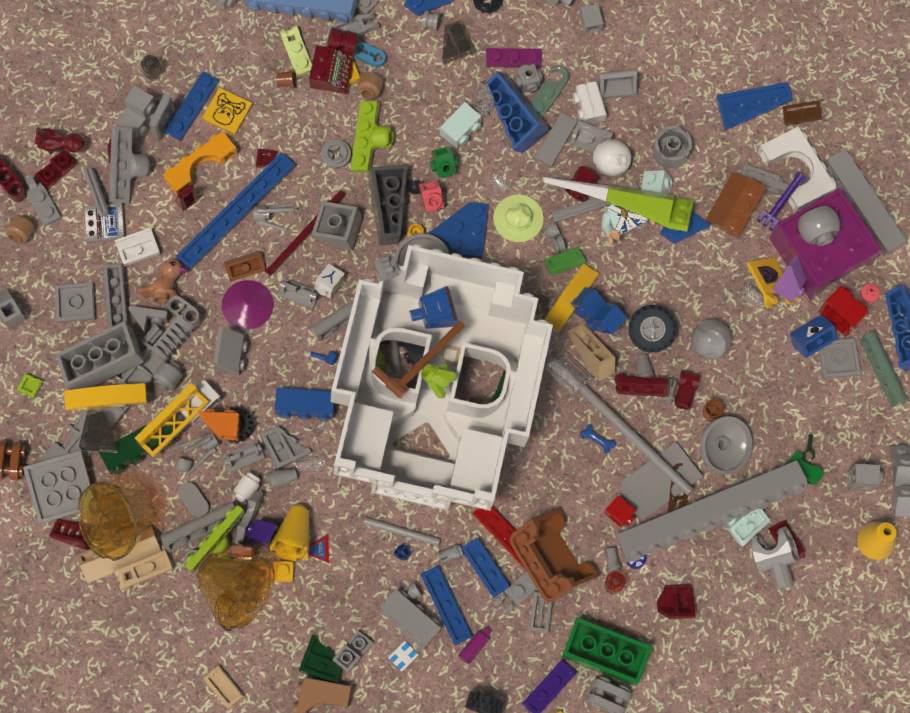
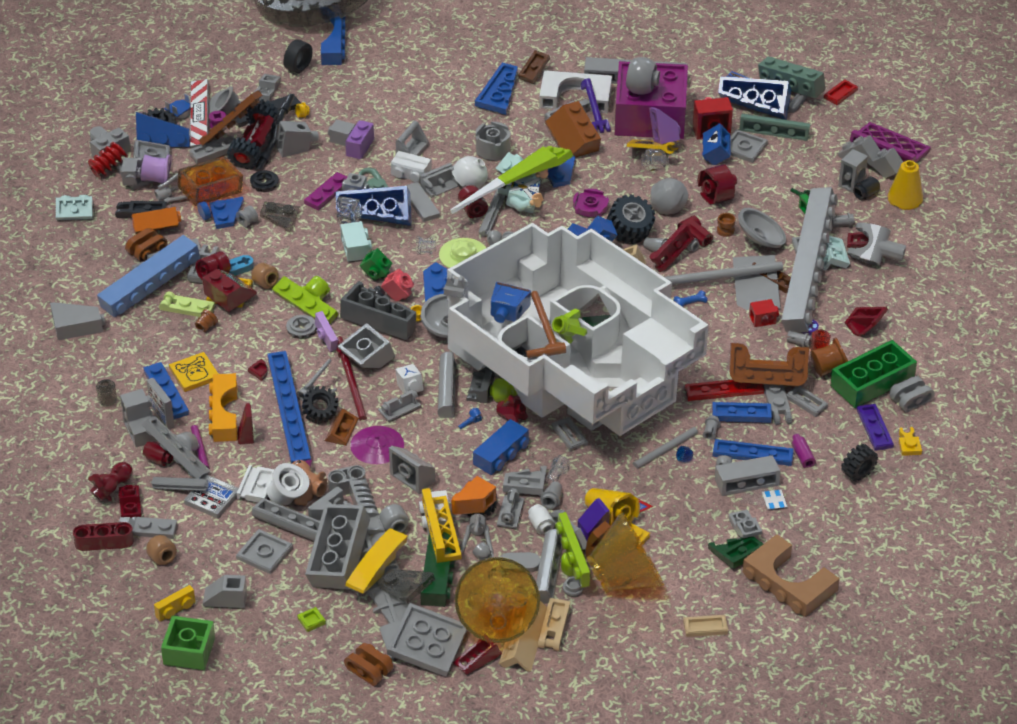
camera: 50 degrees left, 30 degrees down
(140, 274) = (287, 483): none -> white piece
(151, 174) = (200, 451): none -> magenta bar
(240, 237) = (320, 394): none -> black tyre
(336, 178) = (325, 331): none -> lavender plate
(591, 38) = (359, 139): none -> medium lavender brick
(597, 603) = (828, 357): none -> dark orange piece
(659, 268) = (582, 203): none -> magenta plate
(755, 371) = (717, 184): none -> dark red brick
(798, 505) = (843, 220): none -> light grey pin
(857, 501) = (866, 188): none -> black brick

